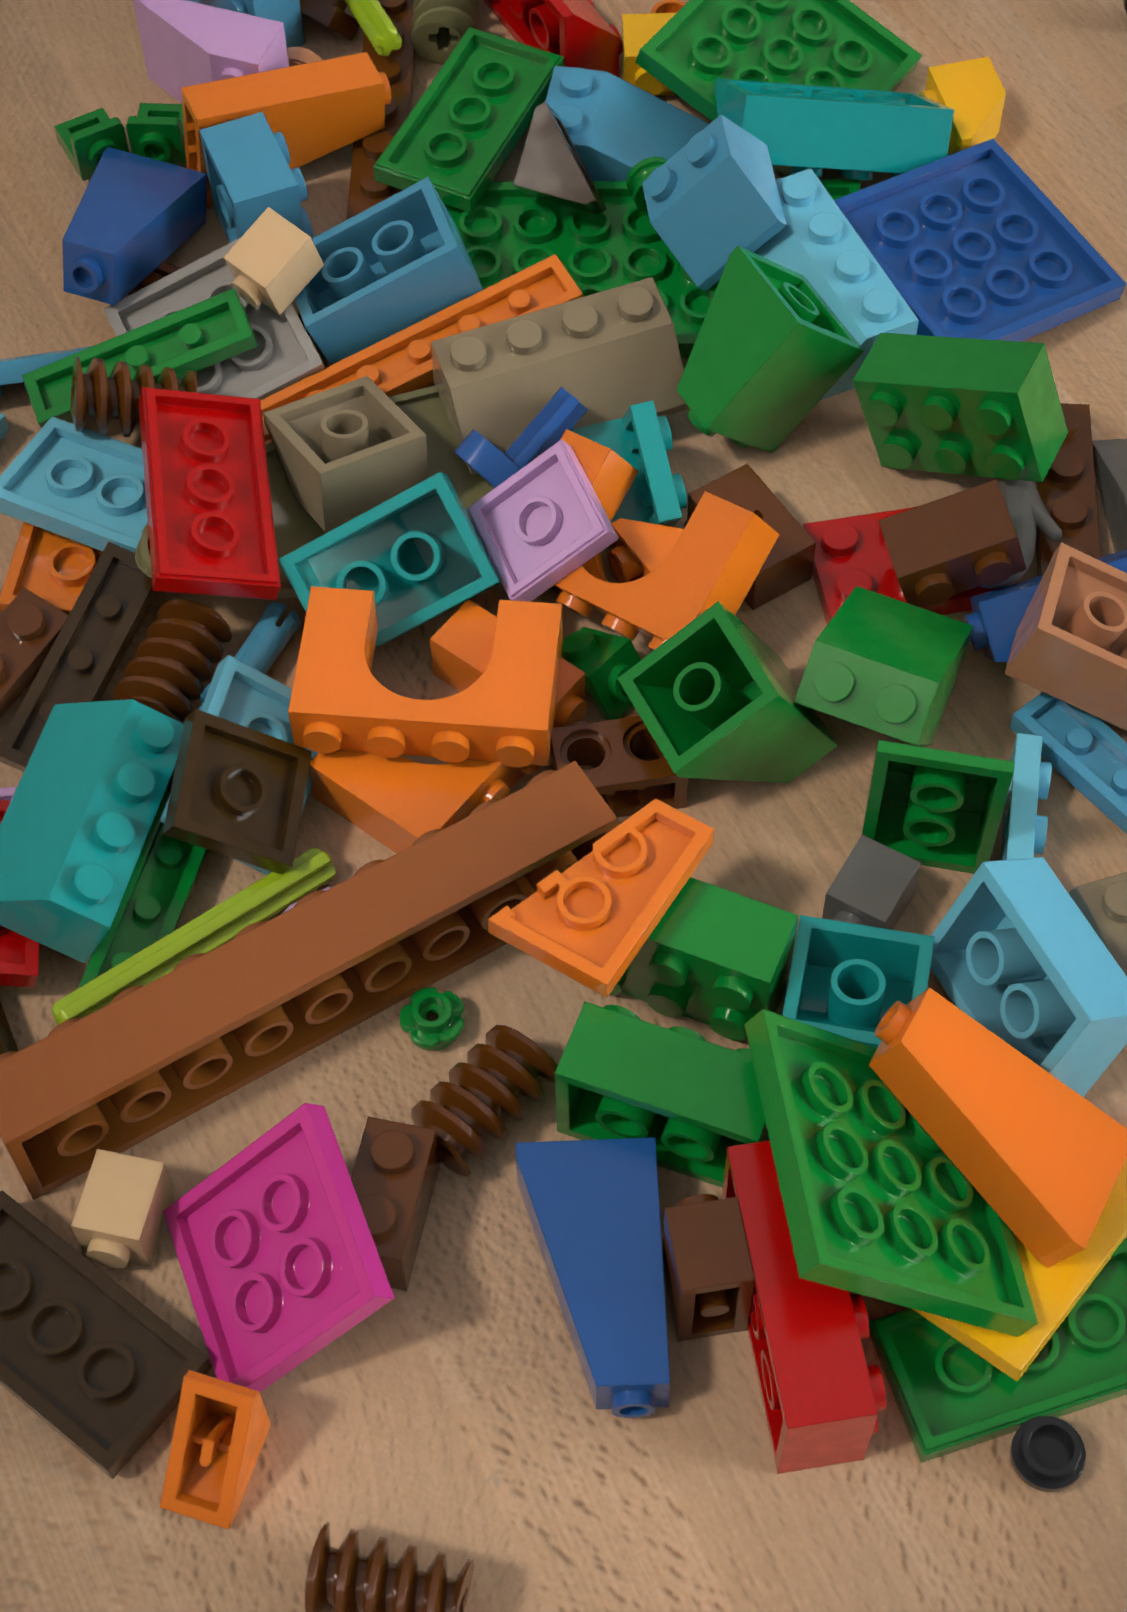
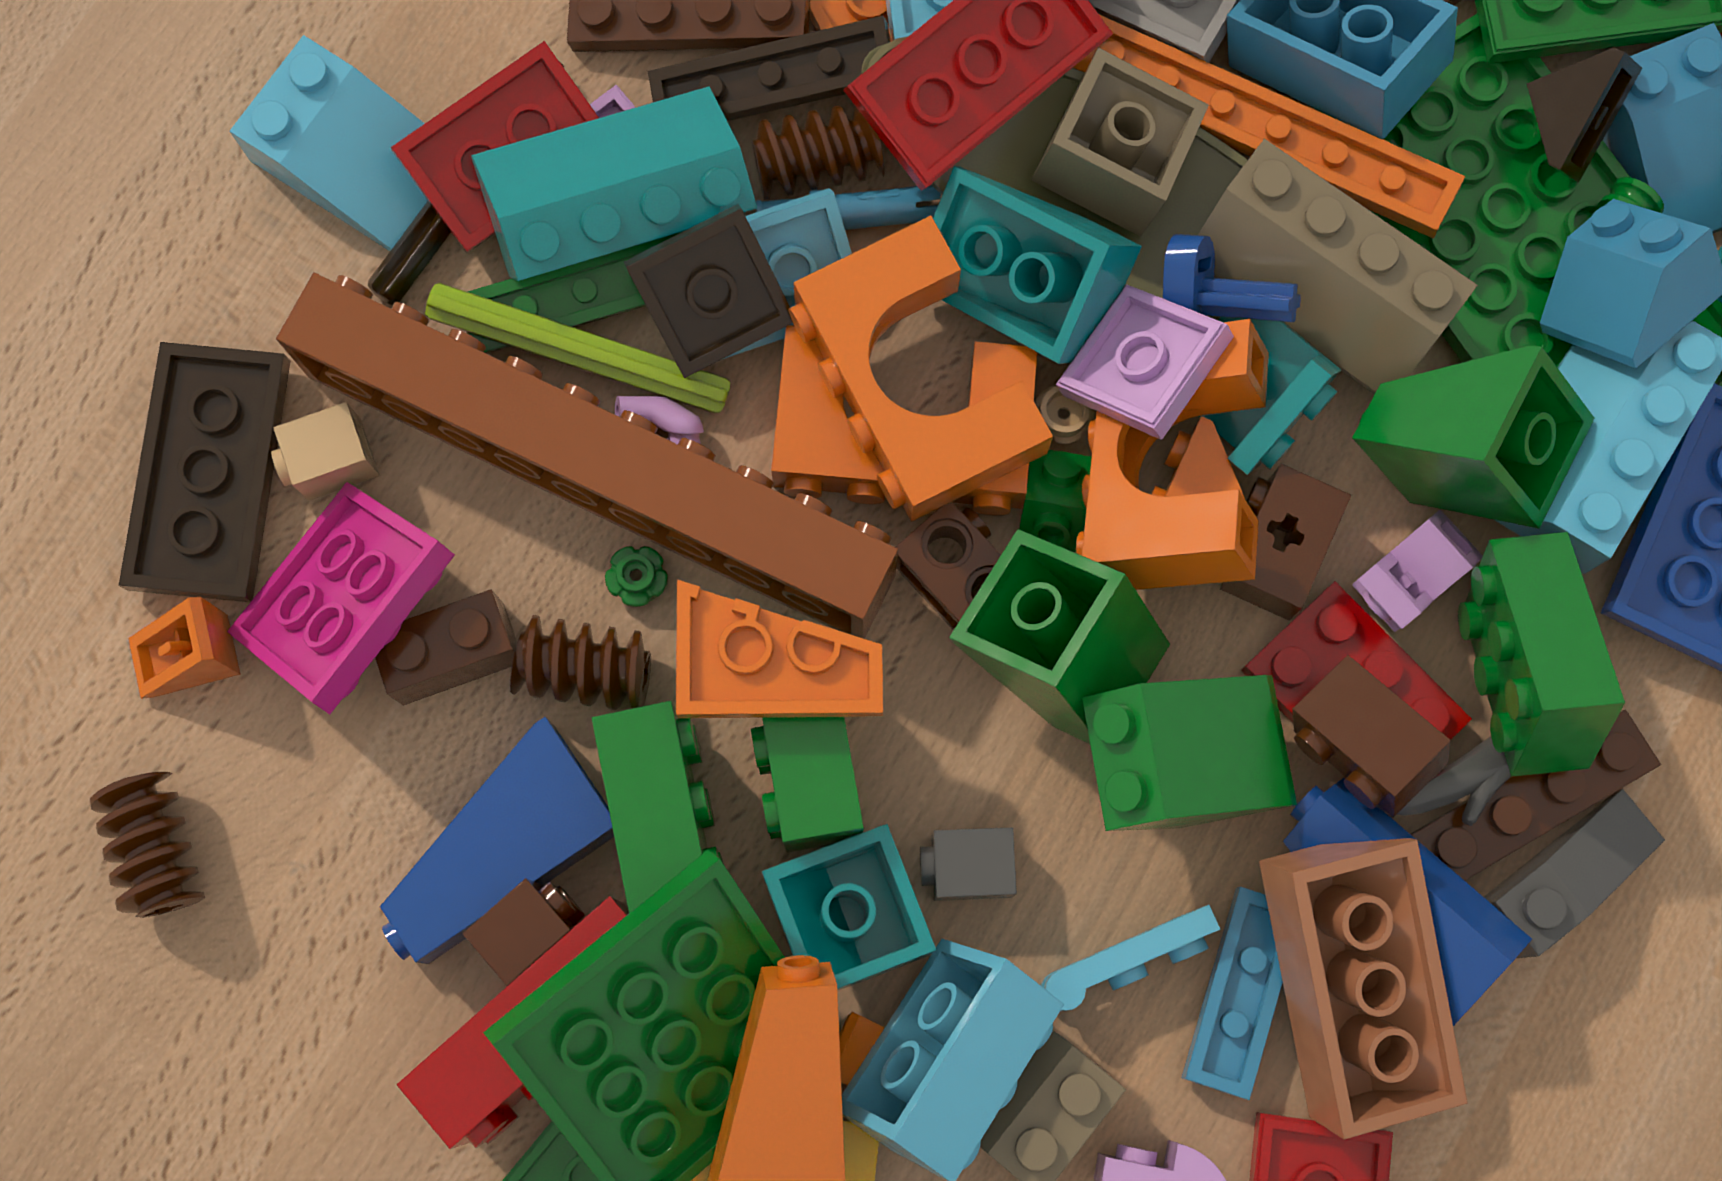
camera: 55 degrees right, 20 degrees up
(836, 465) = (1417, 571): none -> lavender brick
(936, 804) = (1087, 870): green slope -> none

